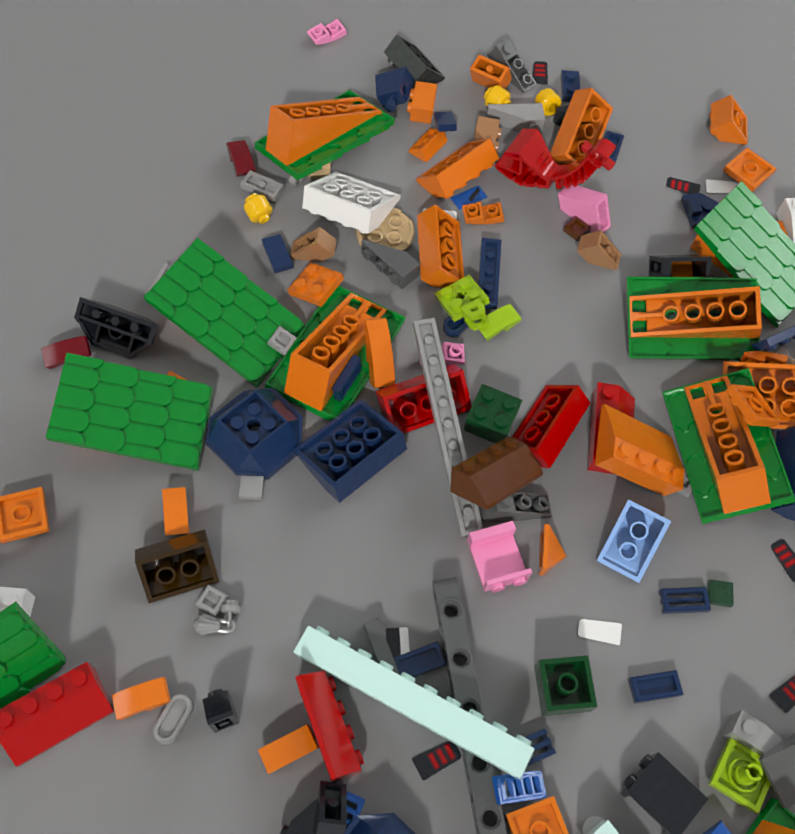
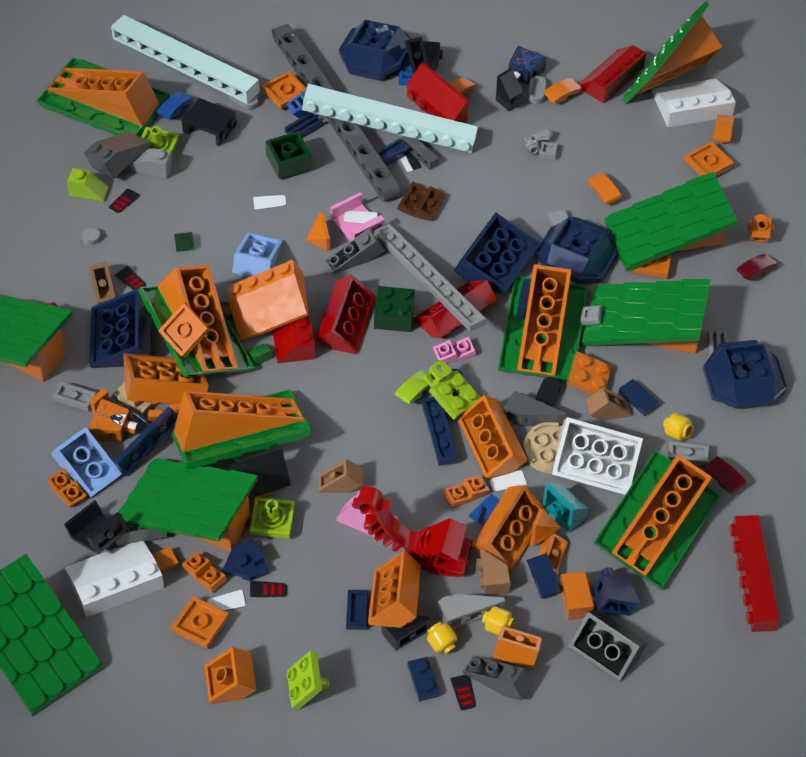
camera: 165 degrees right, 10 degrees down
(30, 391) = (760, 228): none -> orange brick
(115, 327) = (735, 293): black wedge -> none
(158, 237) = (744, 375): none -> dark blue piece
(171, 766) = (526, 64): none -> dark blue torso
(176, 566) = (584, 159): dark brown slope -> none
(265, 79) = (755, 573): none -> red brick
(327, 34) = (725, 663): bright pink slope -> none
(366, 281) = (548, 391): none -> black tile
(379, 353) = (505, 318): orange slope -> none
(401, 164) = (564, 506): none -> teal slope
(408, 566) = (421, 201): none -> reddish brown slope
(432, 149) = (542, 527): none -> orange slope
(490, 563) = (359, 217): none -> white sticker
(495, 473) = (377, 249): reddish brown slope -> none
(653, 411) = (260, 354): none -> green slope
(655, 686) = (223, 178): dark blue tile -> none
(670, 96) = (305, 680): none -> lime plate
(671, 236) = (272, 518): none -> lime plate
(684, 609) = (211, 232): dark blue tile -> none

